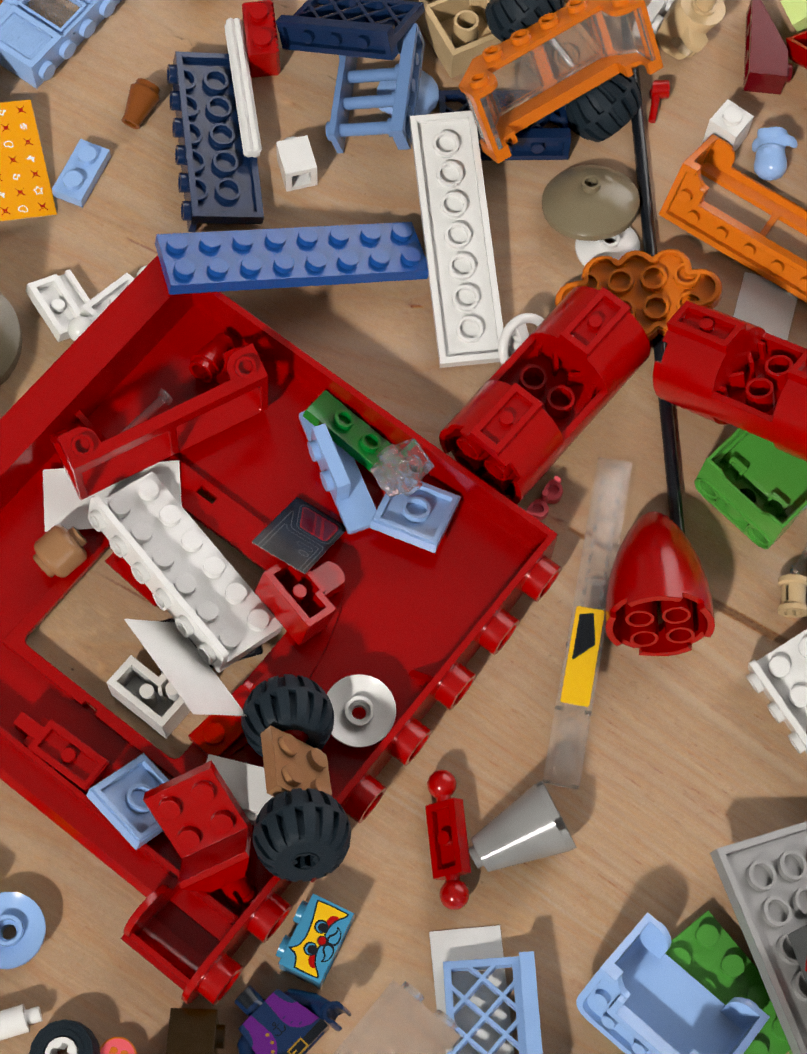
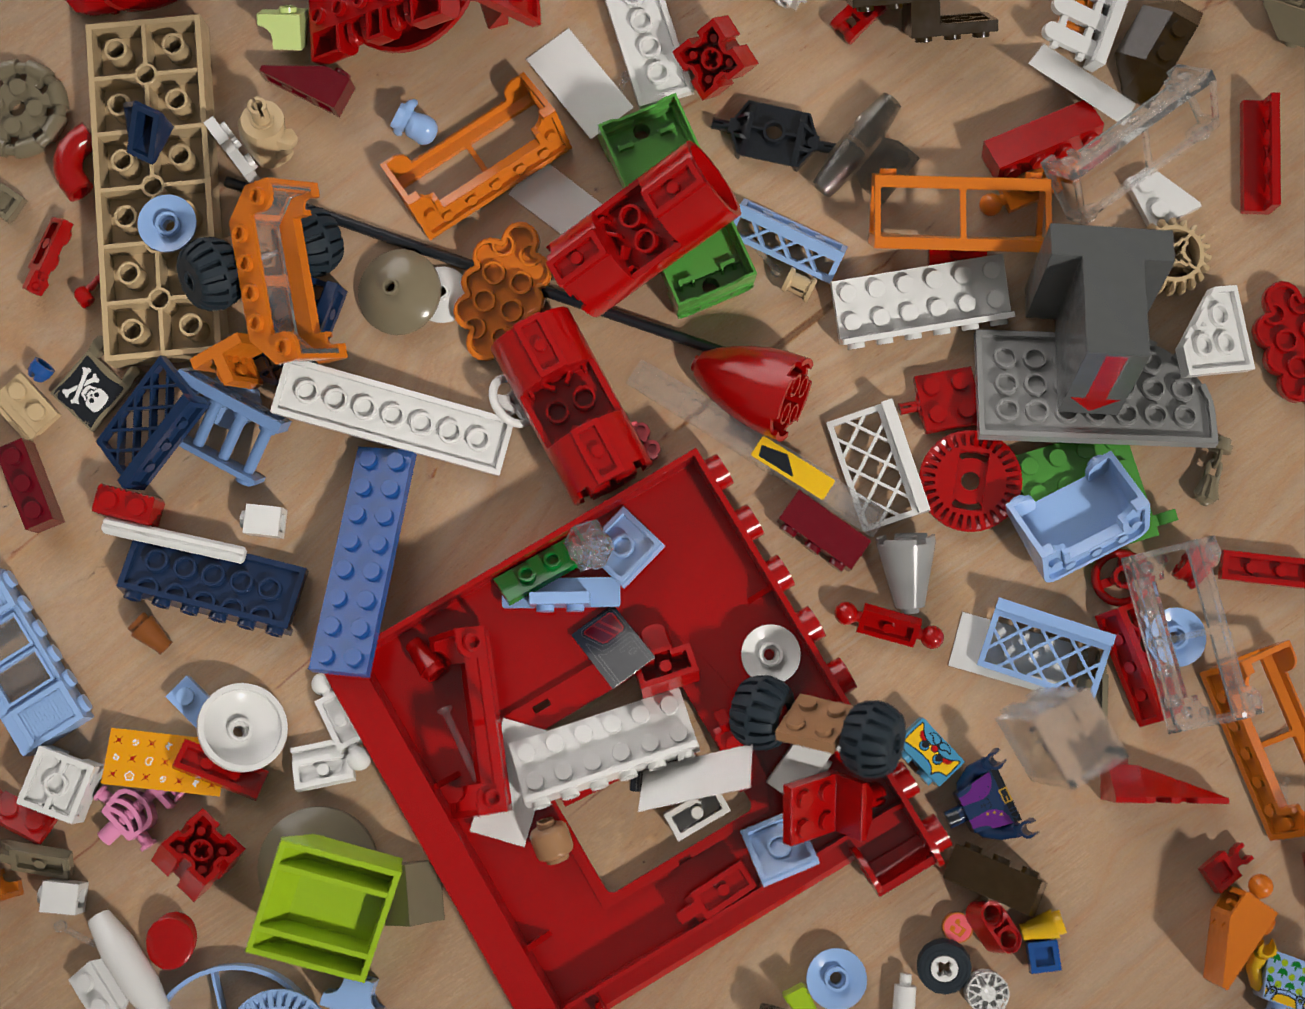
camera: 60 degrees left, 15 degrees up
(23, 211) = (195, 763): none -> red plate
(89, 198) = (252, 711): none -> white dish
(443, 67) = (231, 361): none -> orange bracket
(524, 724) = (823, 532): none -> dark red brick
(651, 838) = (998, 481): none -> red piece
(655, 779) = (900, 451): none -> white fence
(659, 90) = (323, 196): red hand -> none
(730, 124) = (375, 147): white brick -> none
(738, 805) = (944, 400): none -> red plate

